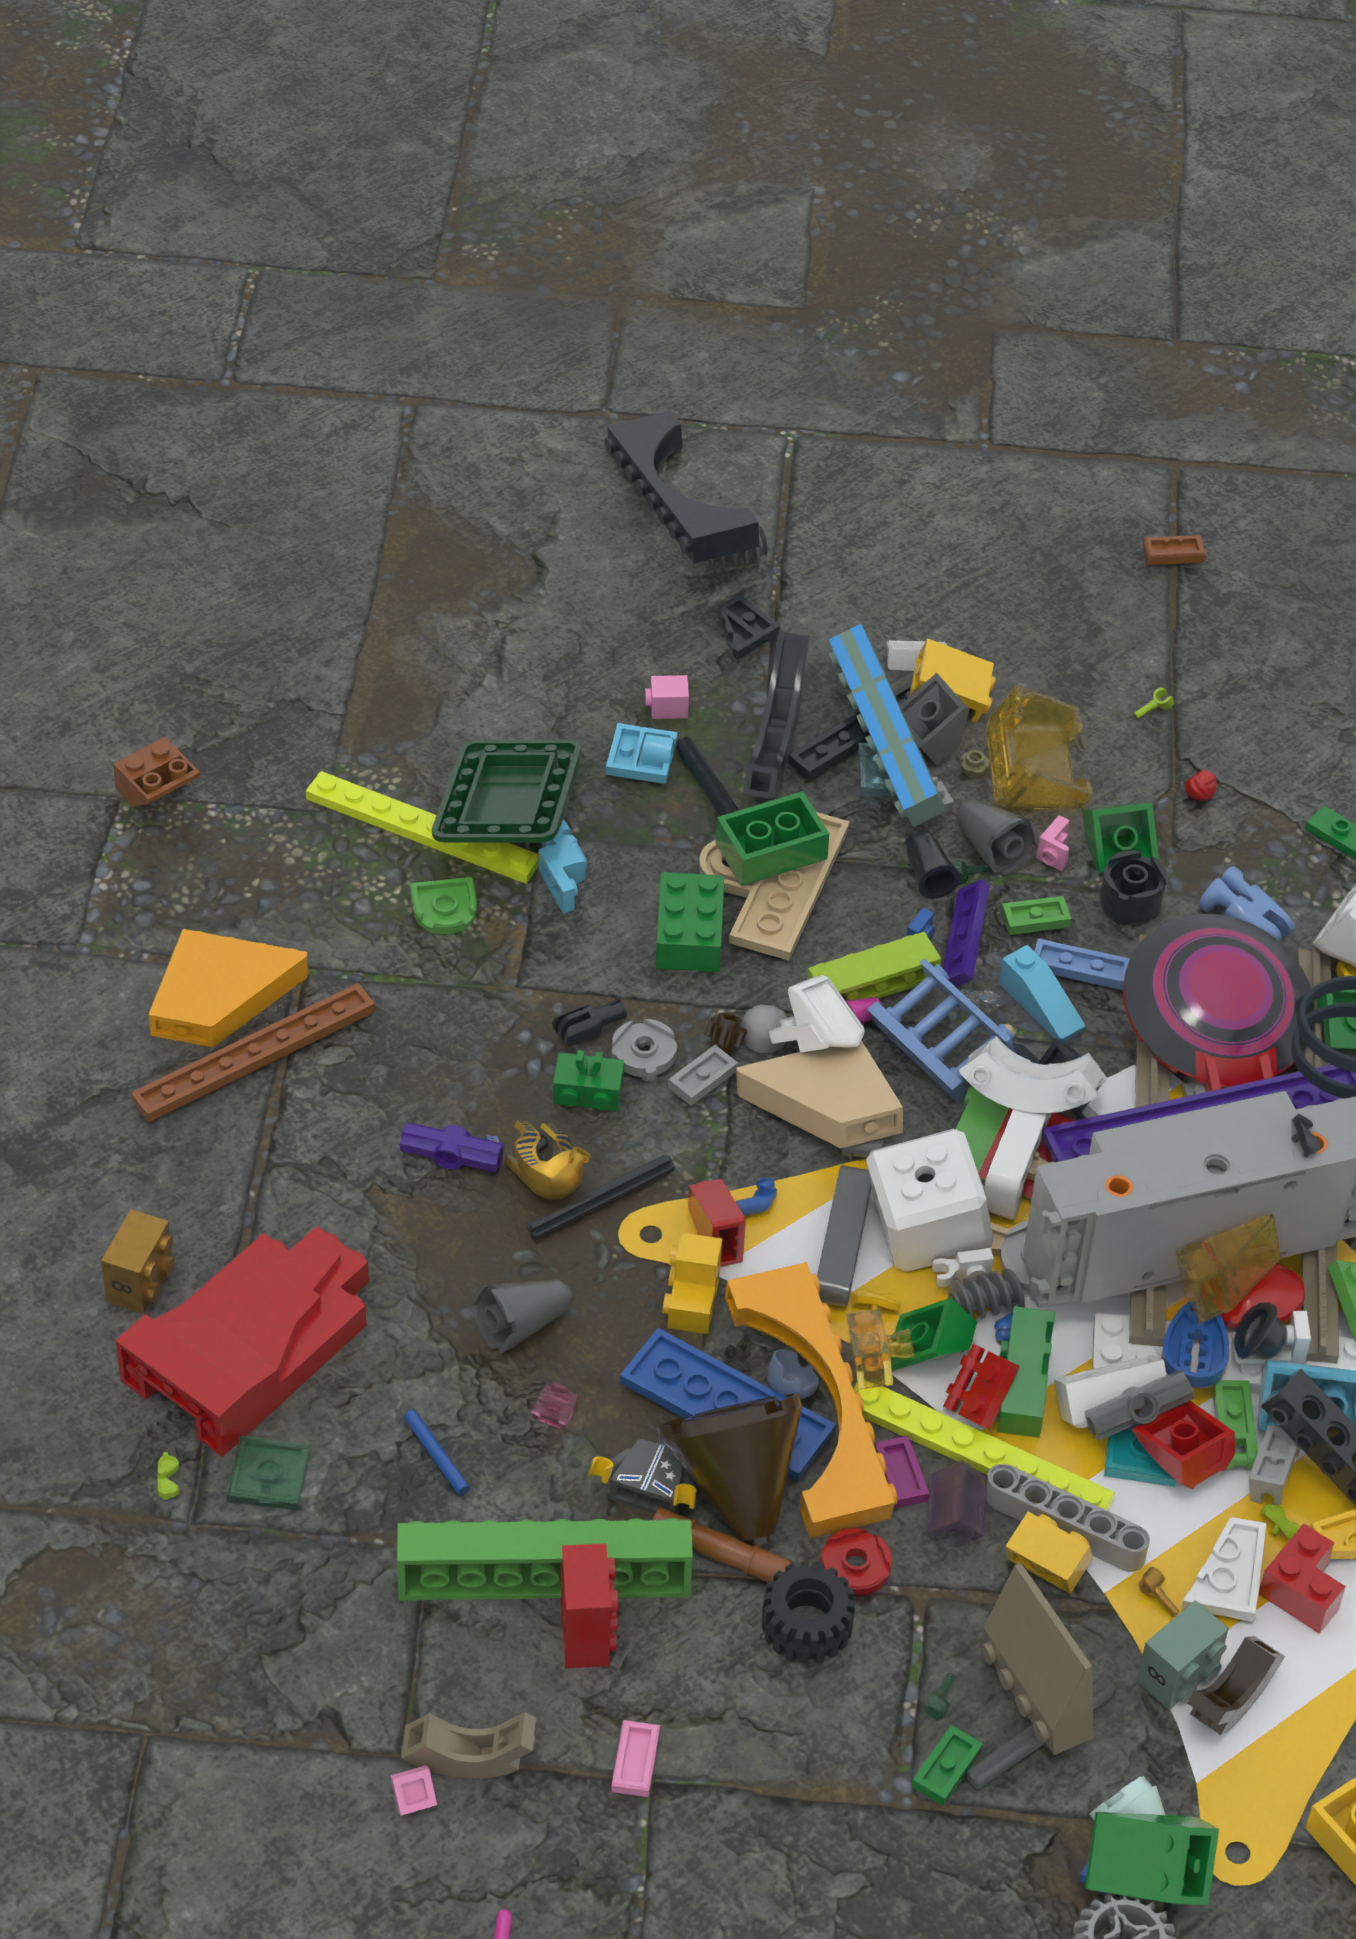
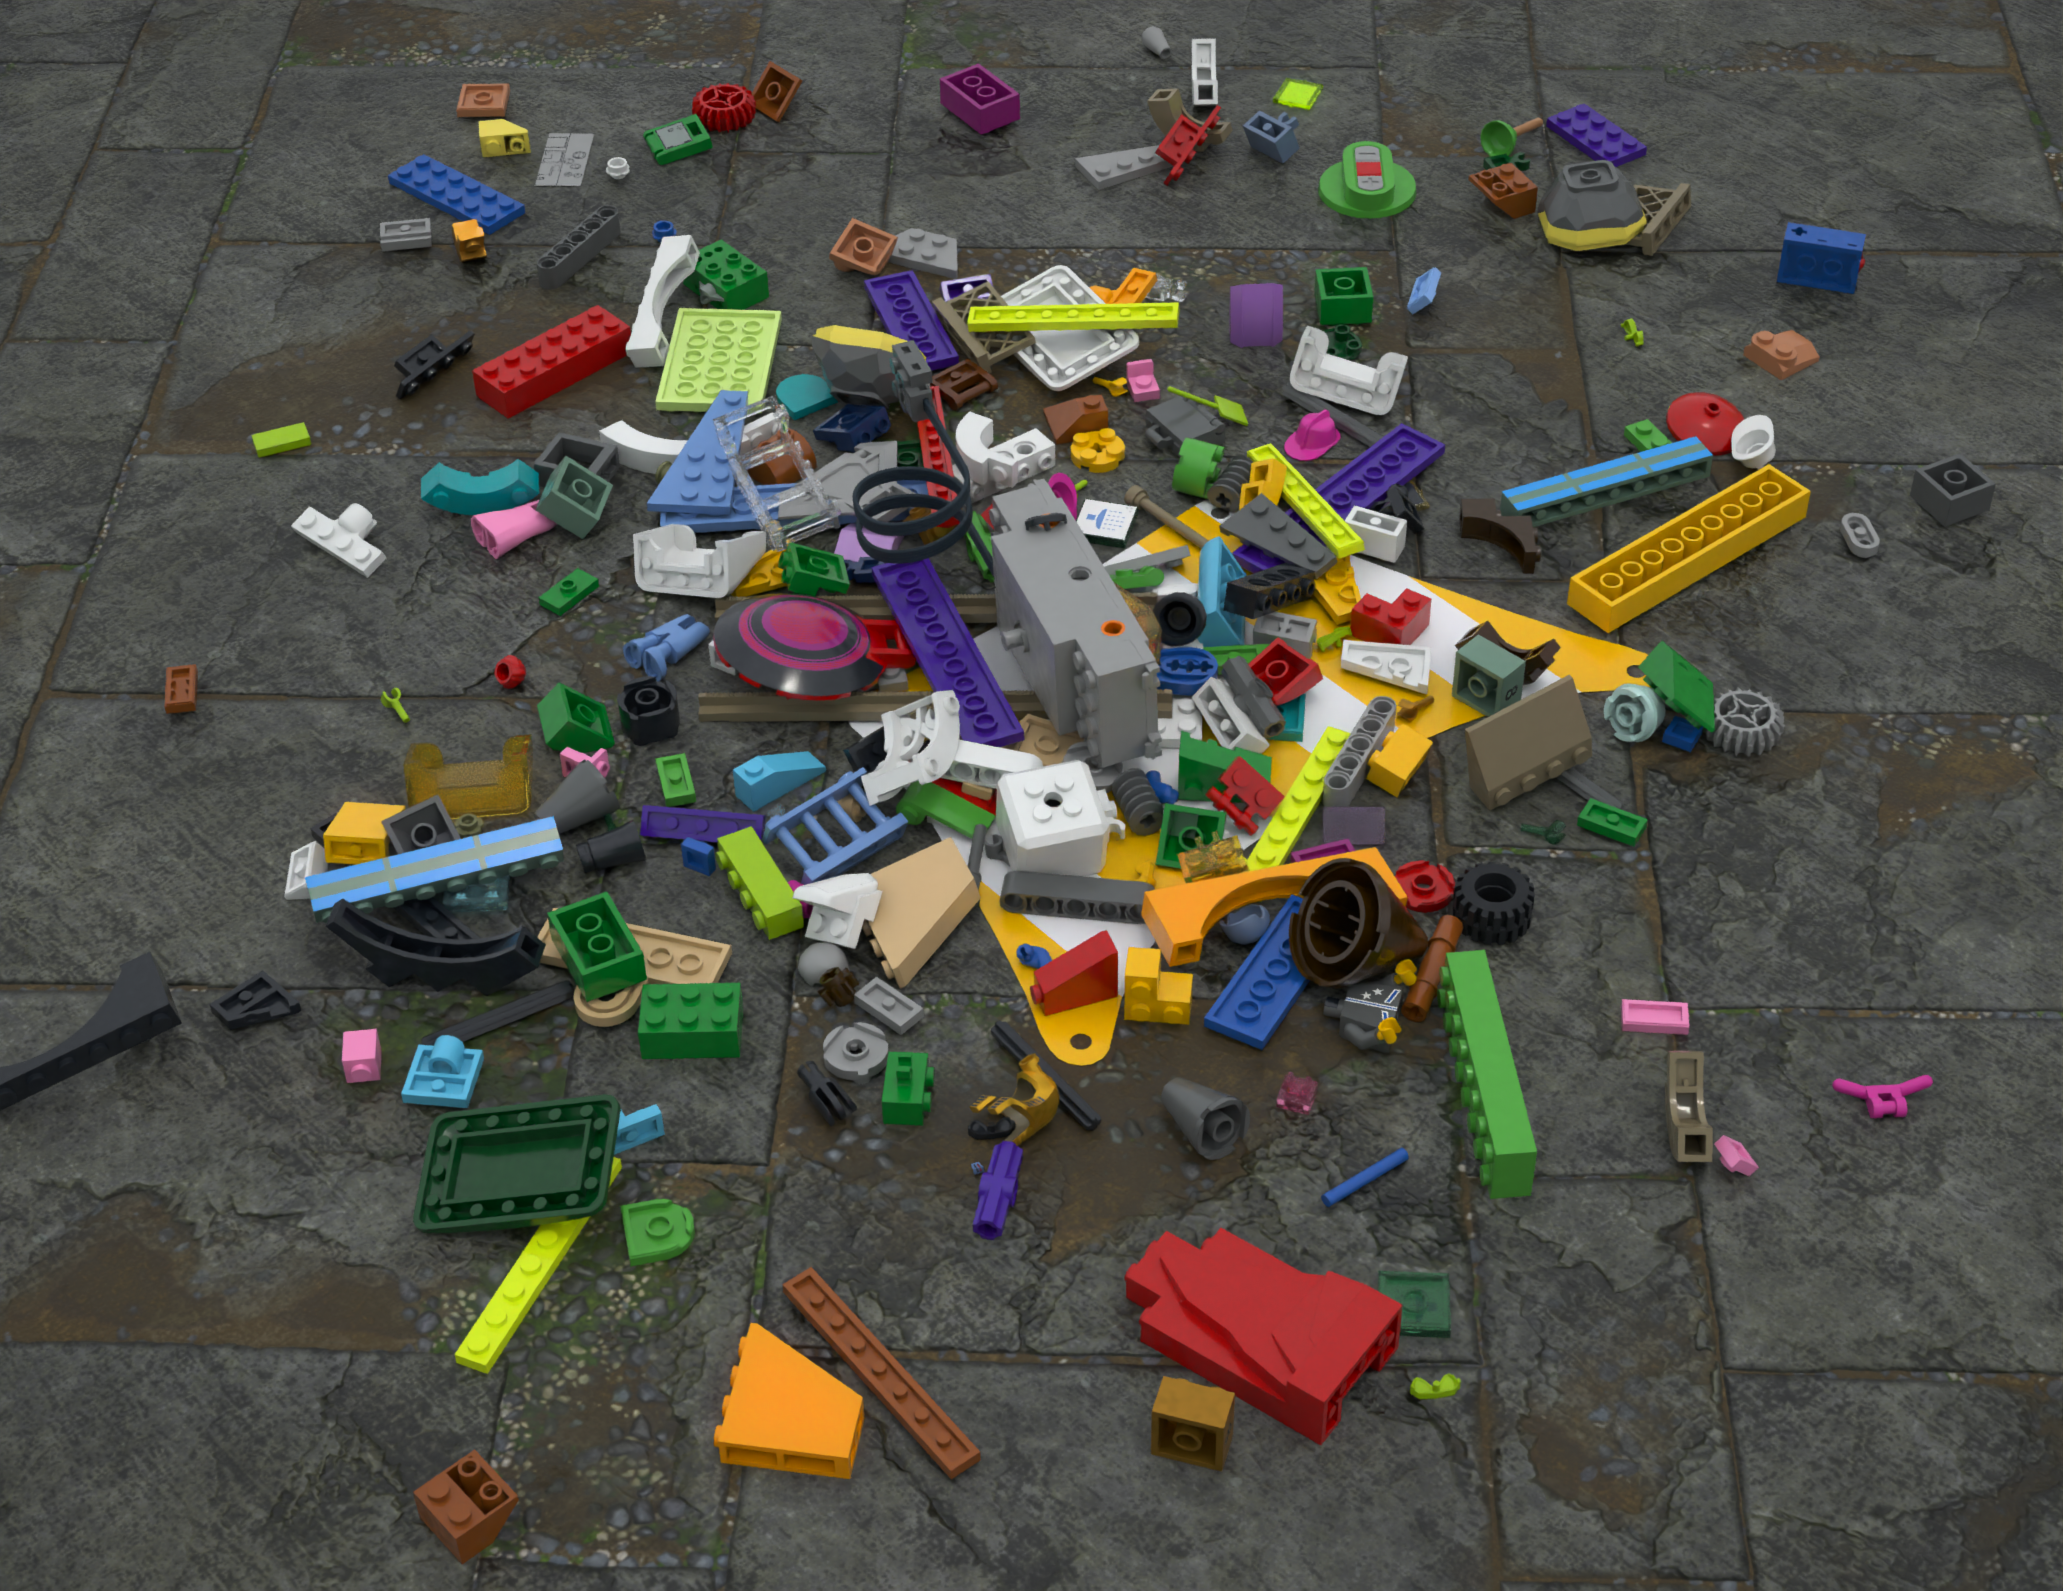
camera: 90 degrees left, 5 degrees down
(588, 1605) = (1543, 1026): red brick -> none
(1083, 963) = (736, 748): medium blue plate -> none

